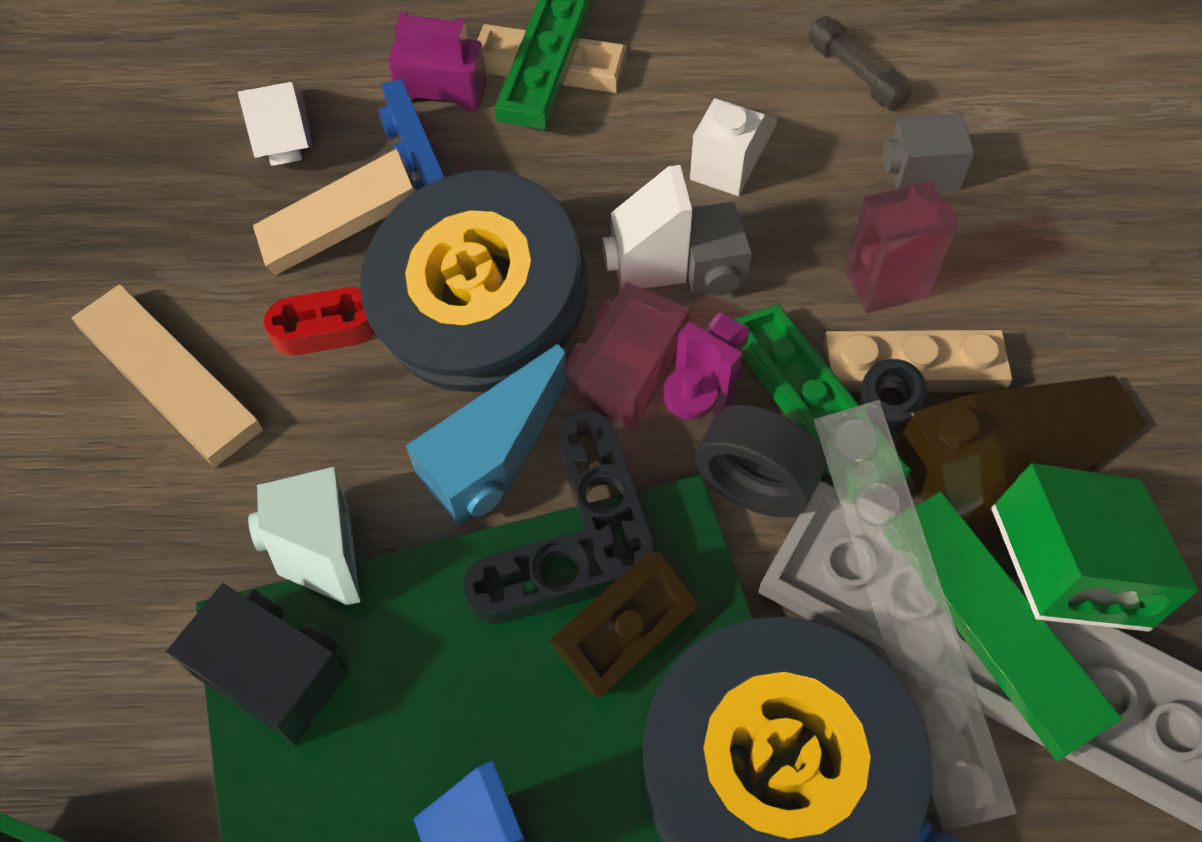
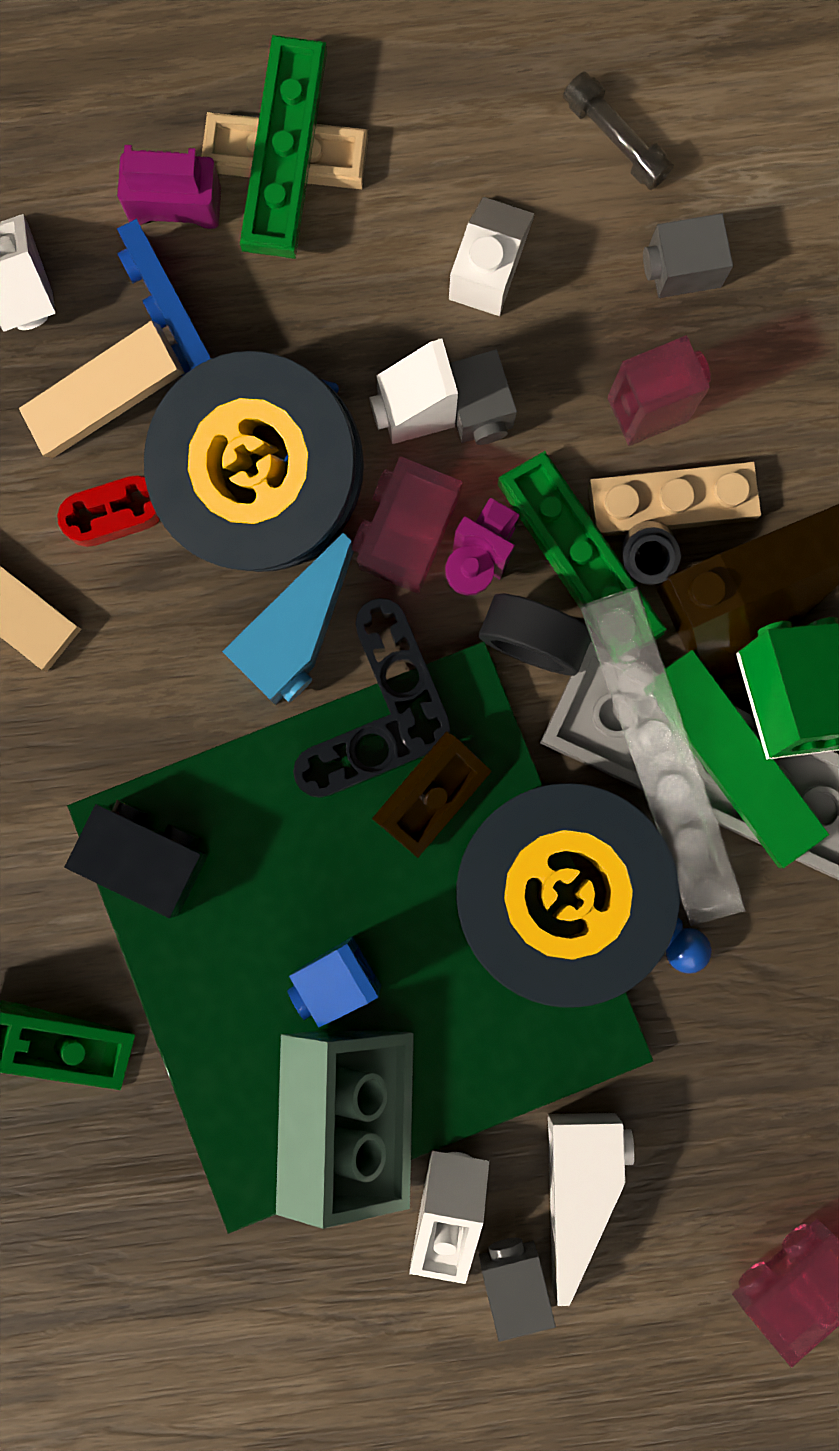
camera: 10 degrees left, 25 degrees up
(308, 533) = (151, 738): light aqua slope -> none

